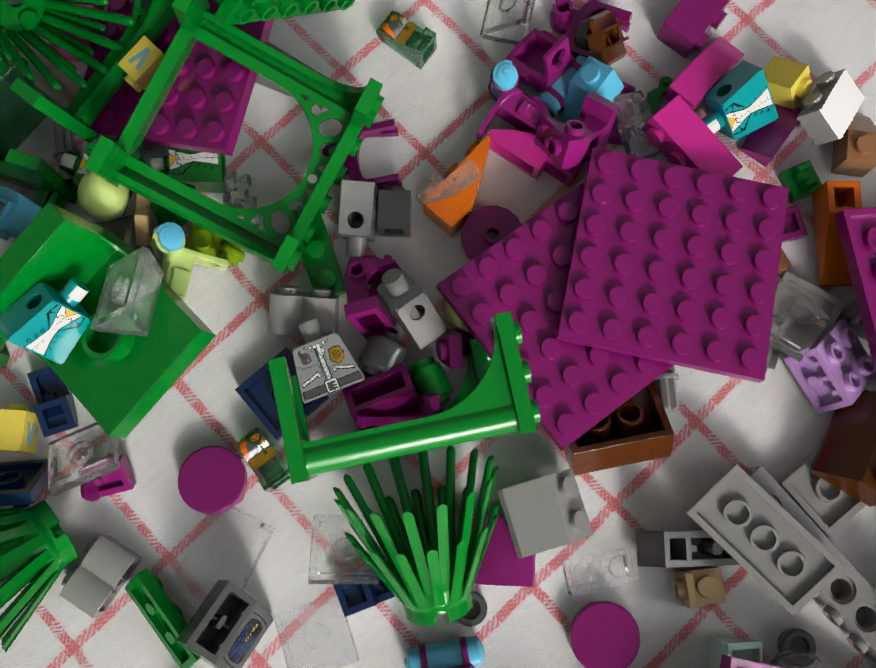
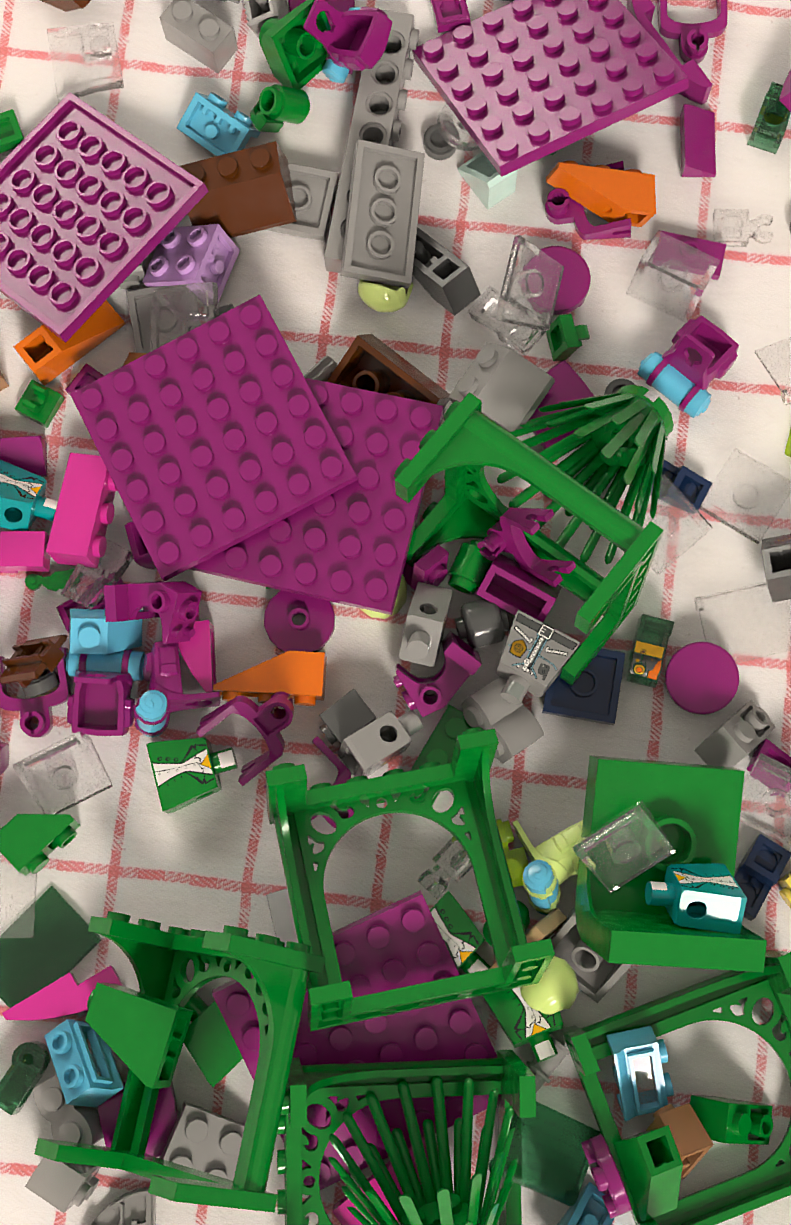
camera: 125 degrees left, 0 degrees up
(141, 63) = (402, 1041): light yellow brick -> none
(150, 466) = (736, 737): none -> light grey slope
(407, 38) = (170, 848): clear green leg -> none
(434, 152) = (264, 718): none -> magenta piece
(449, 84) = (187, 770): none -> green torso
(453, 184) = (301, 688): clear slope -> none
(550, 603) = (565, 337): none -> green tile
(612, 606) = (529, 287): none -> clear slope
(691, 487) = (383, 297): none -> yellowish green hair
(699, 587) = (458, 238): tan bracket -> none

